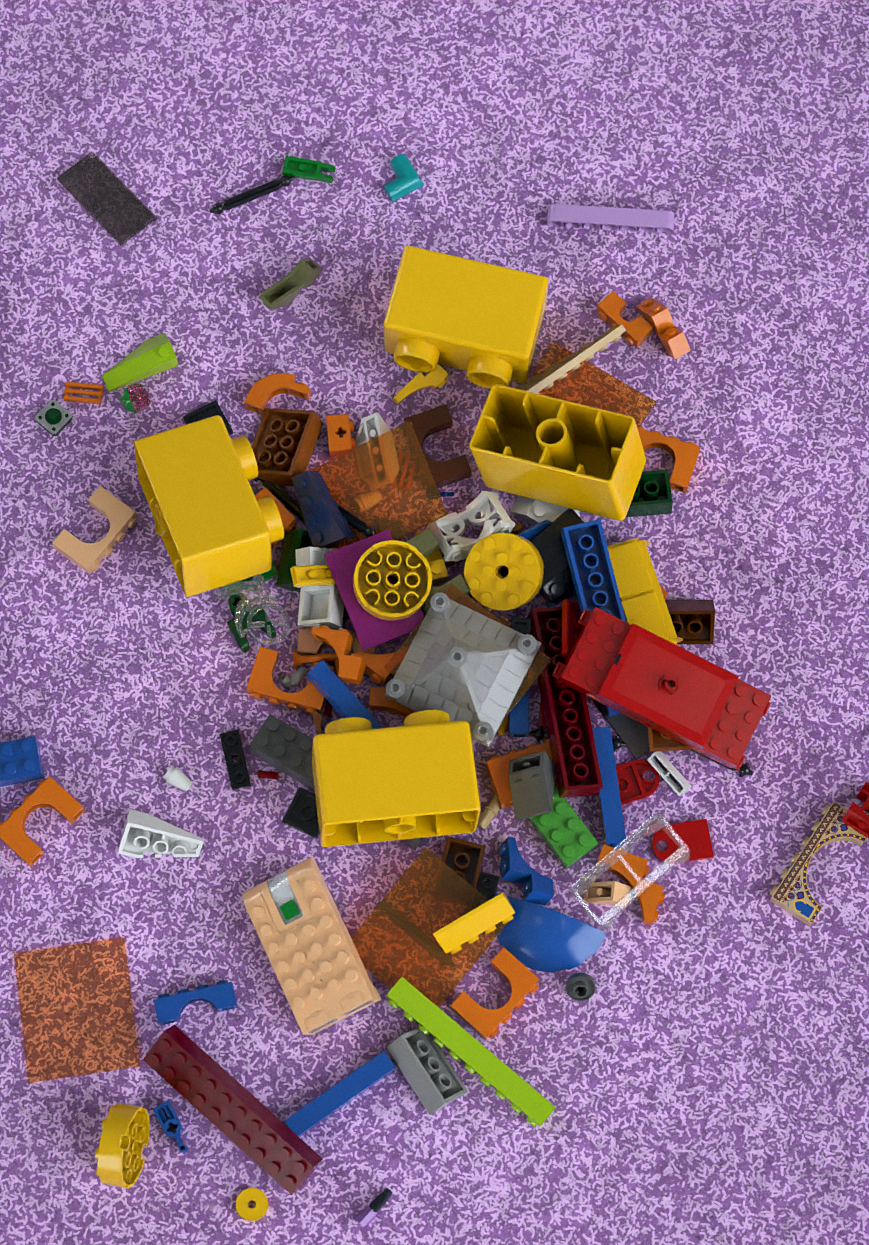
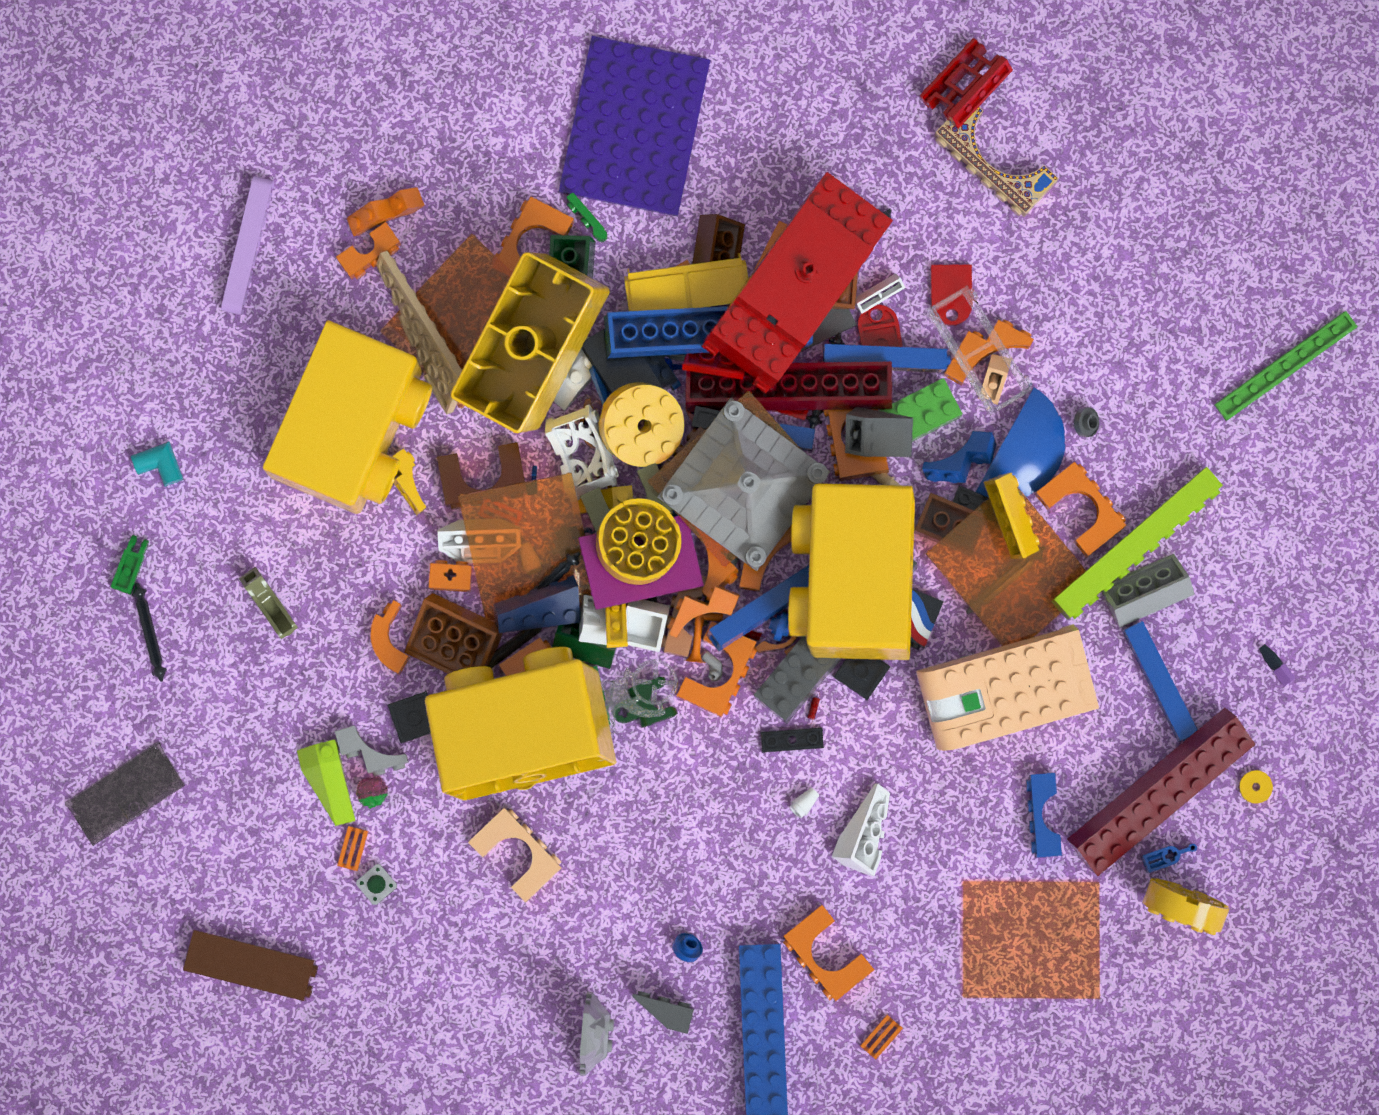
camera: 80 degrees left, 10 degrees up
(29, 693) = (687, 947): none -> blue plate
(176, 376) = (351, 743): none -> light grey arch
(367, 857) = (923, 617): none -> panel
(671, 1175) = (1285, 365): none -> bright green tile
(690, 502) = (588, 218): none -> green hinge
(785, 532) = (634, 126): none -> dark purple plate

